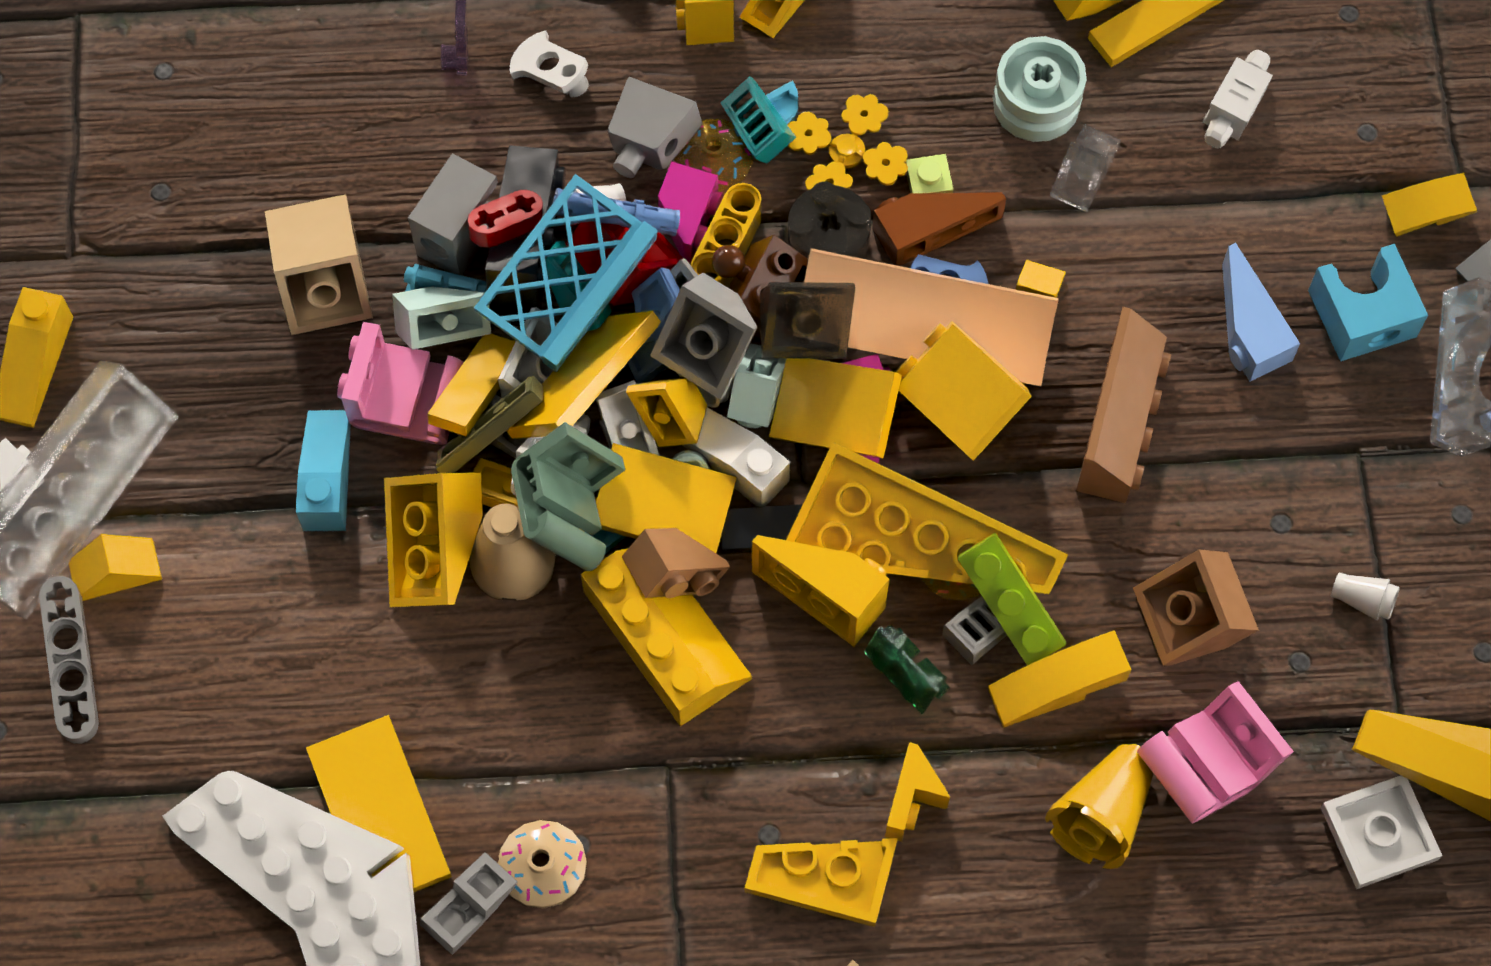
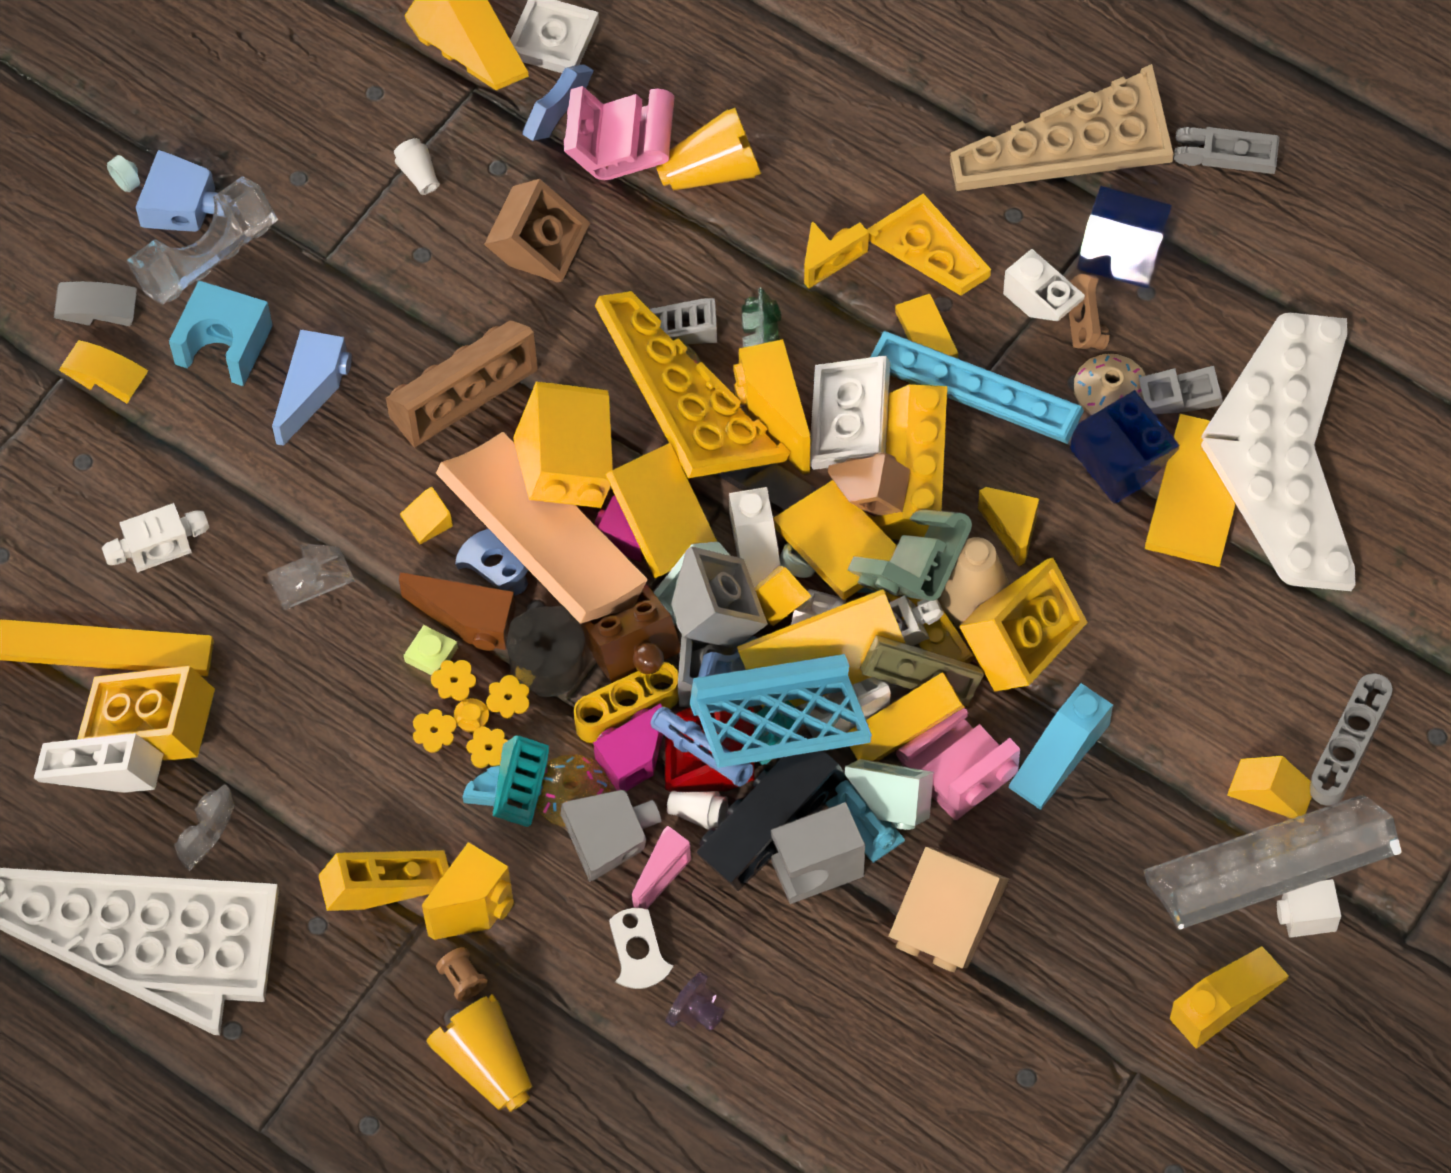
camera: 140 degrees left, 5 degrees down
(475, 786) = (1123, 446): none -> clear blue slope
(505, 218) = (790, 786): red beam -> none
(526, 643) = (1011, 518): none -> yellow slope
(583, 144) = (665, 863): none -> bright pink slope
(601, 892) = (1087, 331): none -> medium nougat piece
(657, 741) = (980, 387): none -> medium azure tile
(673, 897) = (1040, 288): none -> white slope
(757, 641) = (849, 410): none -> white tile
(757, 785) = (924, 325): none -> yellow tile
(806, 319) = (630, 568): clear smoke slope -> none
(1011, 599) = (659, 304): lime plate -> none
(1039, 88) = (291, 644): light aqua wheel -> none
(1060, 679) = (668, 250): yellow slope -> none
(1304, 761) = (552, 107): none -> medium blue tile

